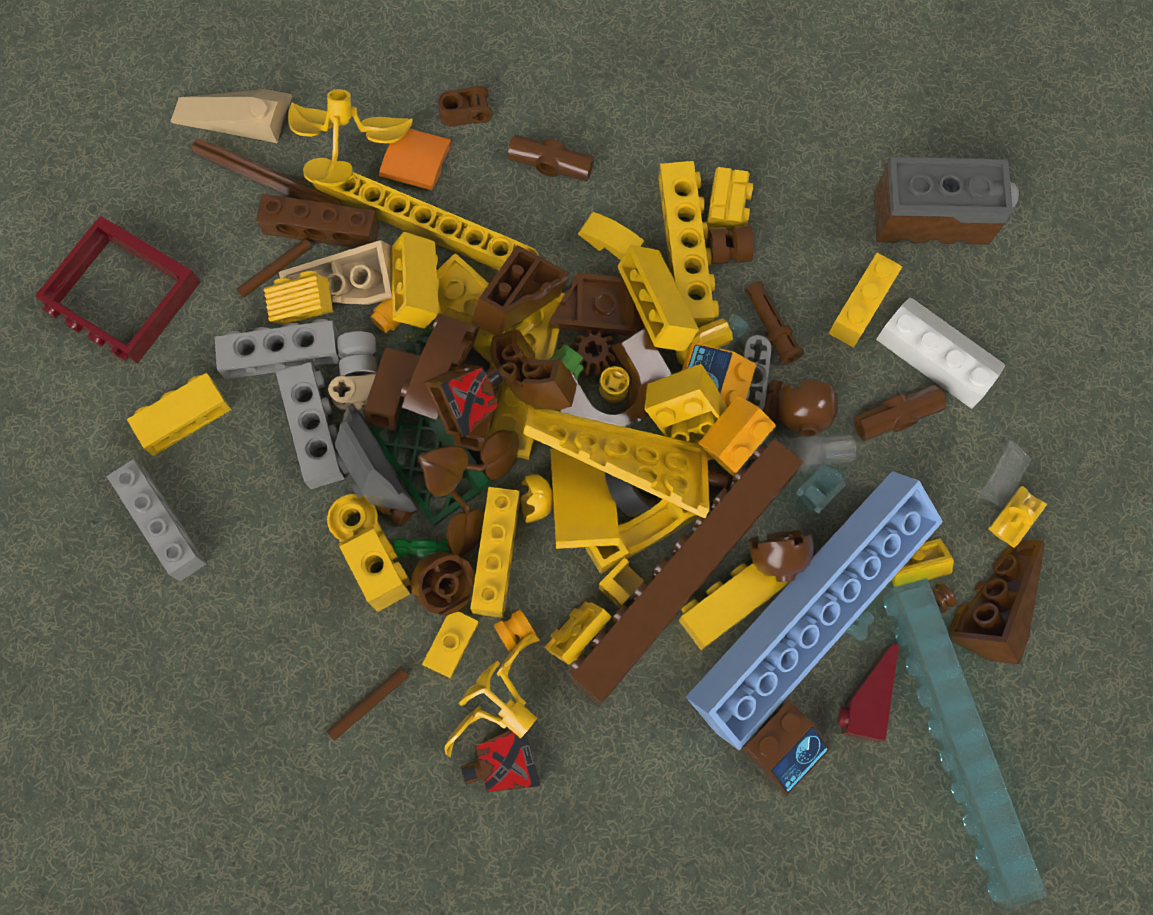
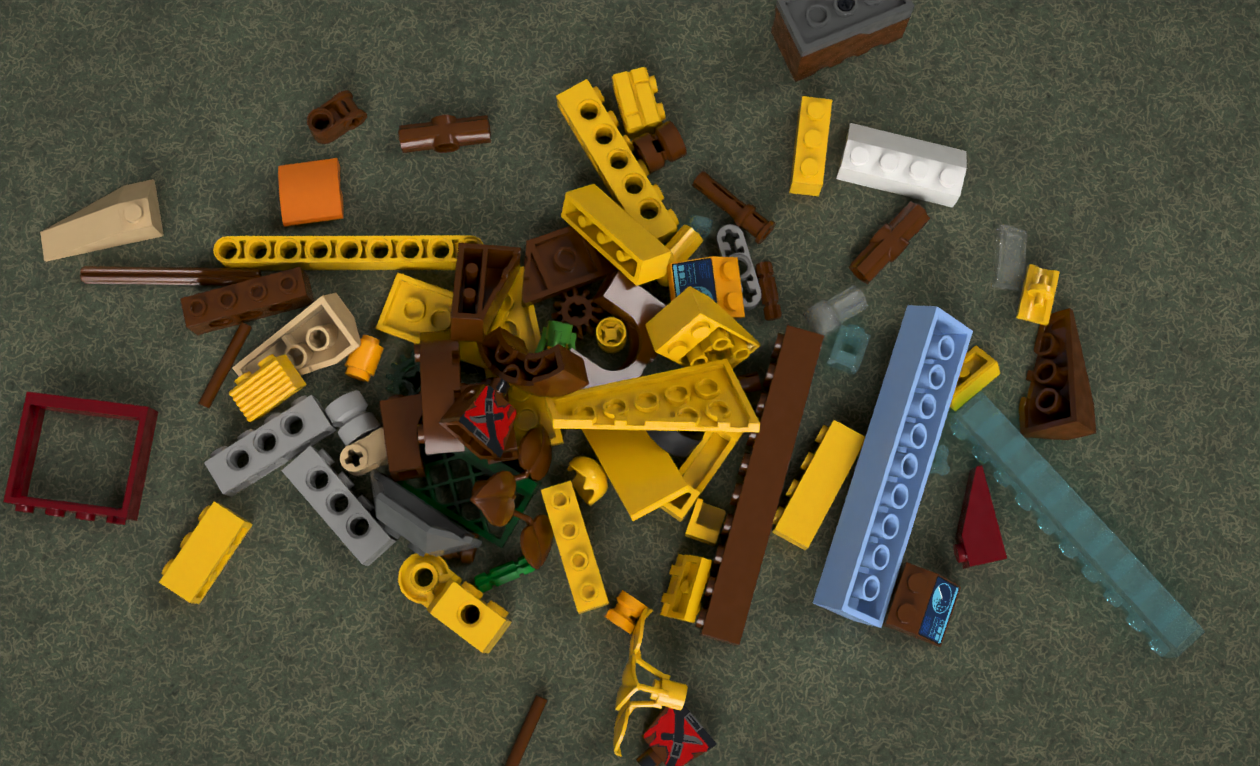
camera: 20 degrees left, 5 degrees up
(156, 520) = (236, 665): light grey brick -> none
(312, 121) = (188, 202): yellow plant -> none
(414, 280) = (373, 320): yellow brick -> none
(442, 582) = (539, 599): reddish brown cylinder -> none
(450, 643) = (572, 651): yellow plate -> none
(607, 233) = (538, 187): yellow slope -> none
(737, 435) = (752, 337): light orange slope -> none
(782, 554) = (841, 430): reddish brown cylinder -> none
(807, 408) = (804, 278): reddish brown cylinder -> none
(944, 597) = (1002, 401): reddish brown bush -> none

